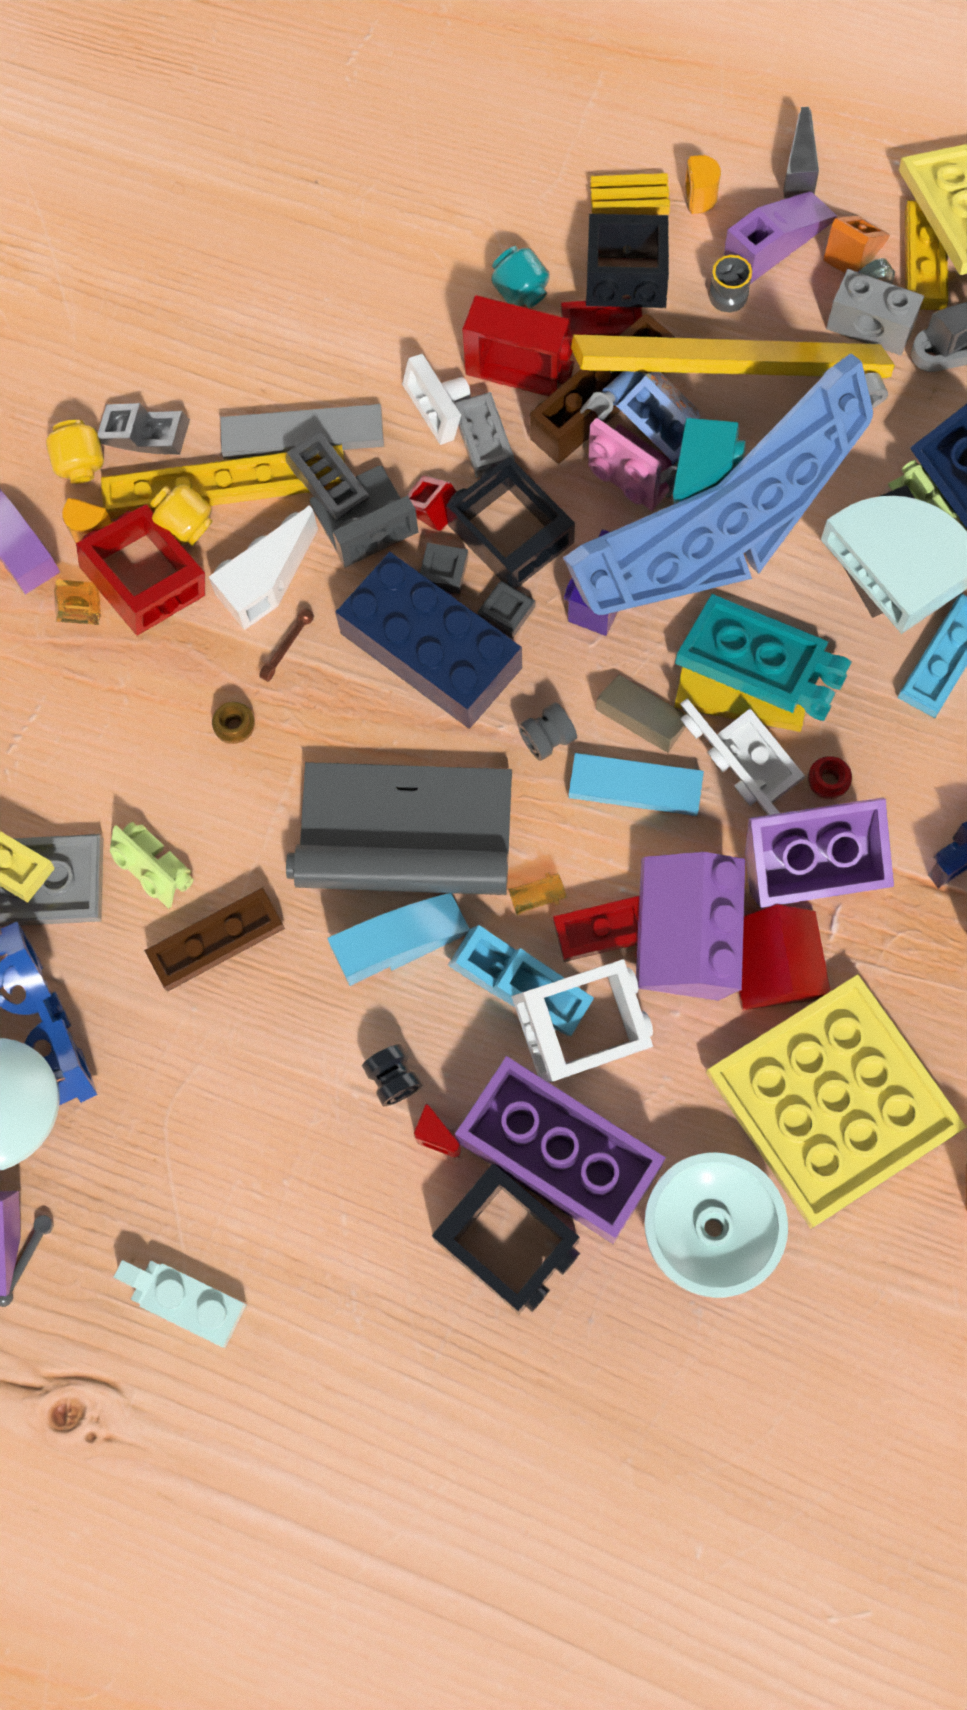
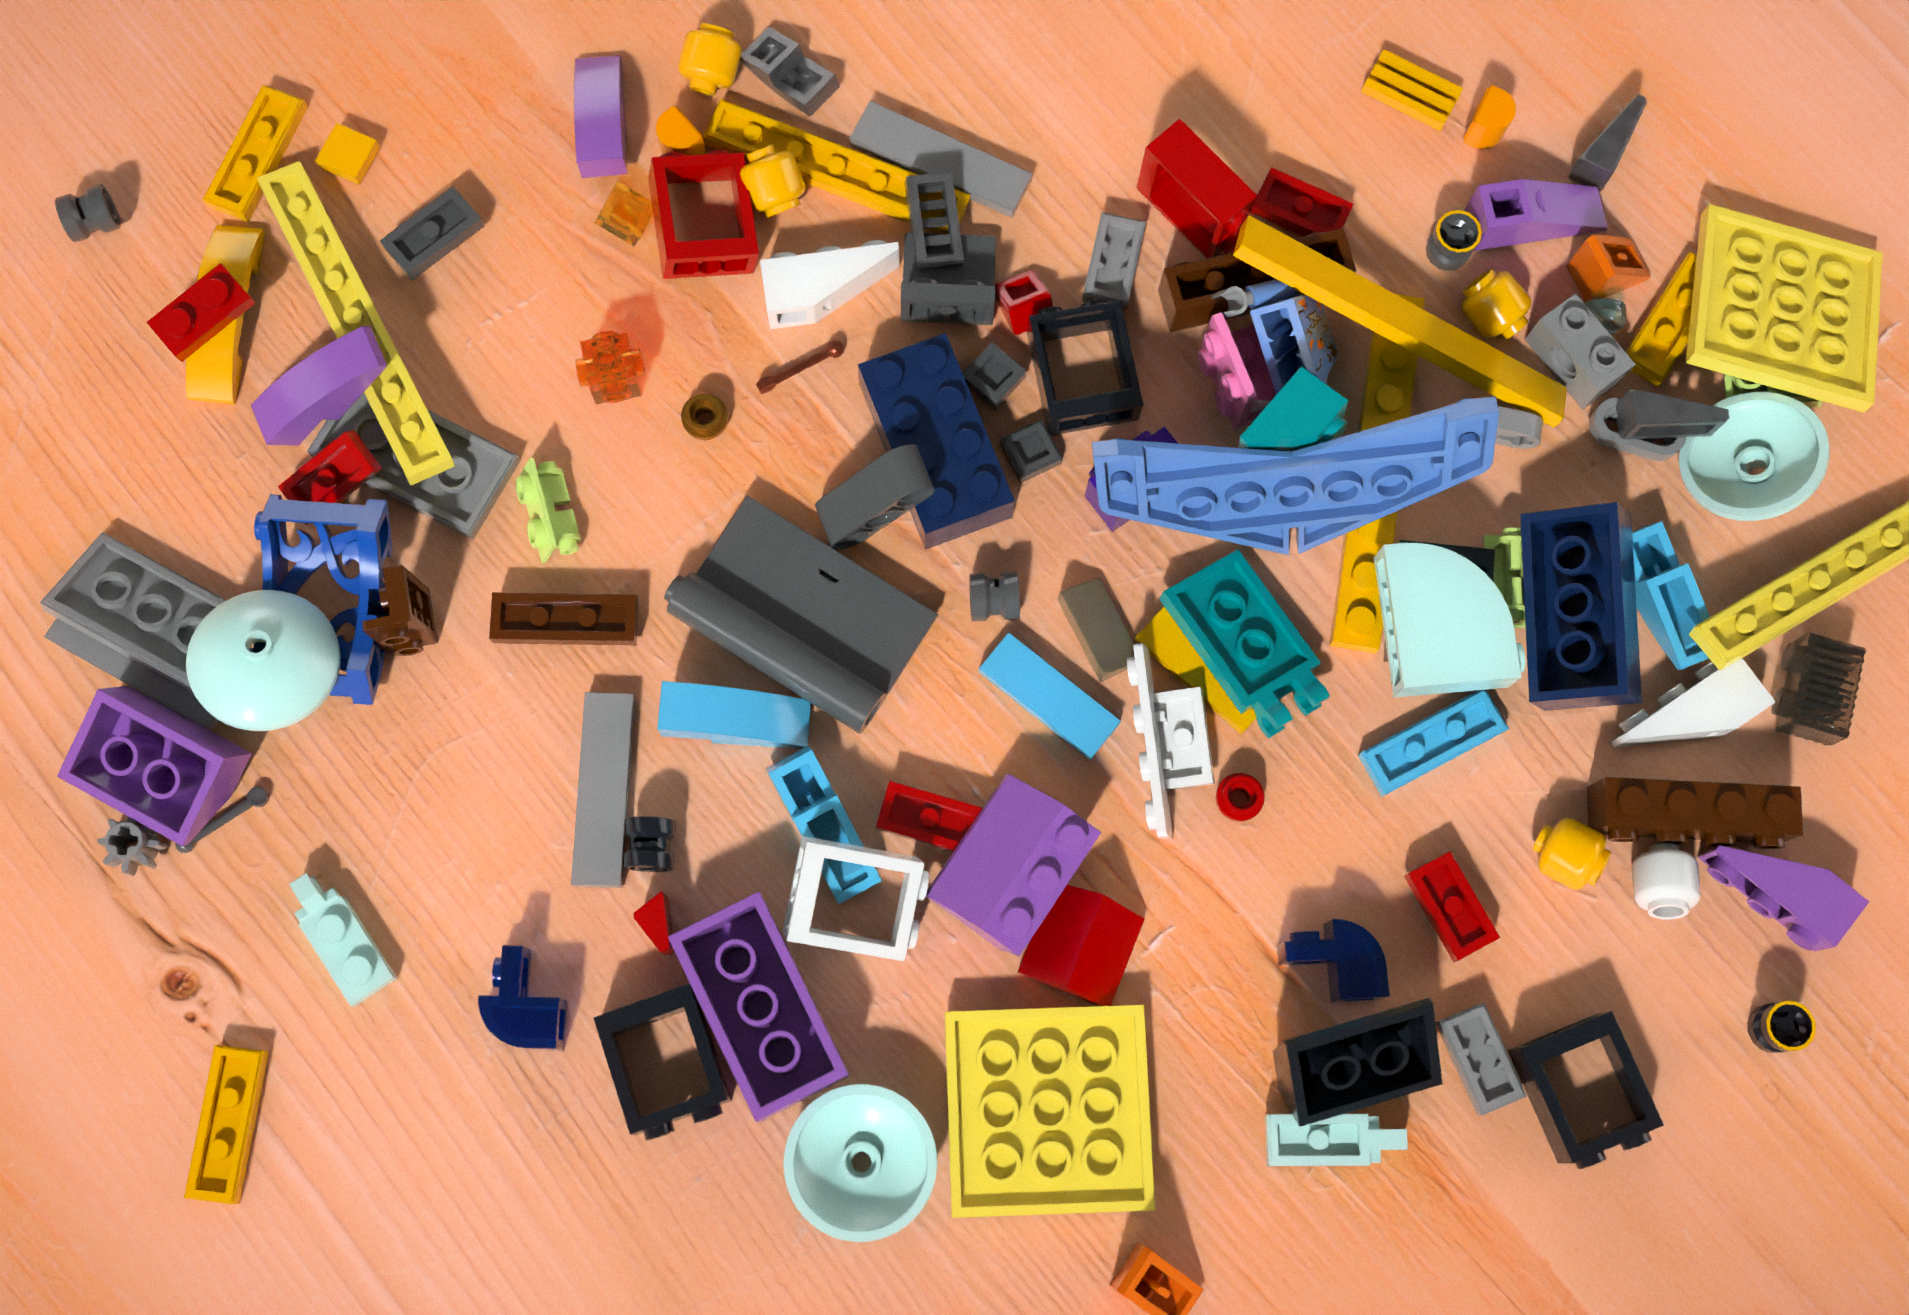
camera: 20 degrees right, 5 degrees up
(90, 1014) = (410, 611): none -> reddish brown bracket
(136, 724) = (610, 367): none -> clear orange brick
(174, 1507) = (226, 1124): none -> yellow tile
(327, 1056) = (603, 790): none -> light grey tile
(367, 1275) = (514, 1016): none -> clear blue brick
(410, 704) = (874, 497): none -> dark grey beam
(434, 398) = (1089, 198): white tile -> none
(520, 277) = (1247, 118): teal head -> none
(537, 893) = (890, 749): clear yellow pin -> none
(628, 238) = (1377, 134): black window -> none
(791, 311) = (1496, 304): none -> yellow head
(819, 570) = (1385, 399): none -> yellow plate
(819, 852) = (1174, 869): medium lavender slope -> none

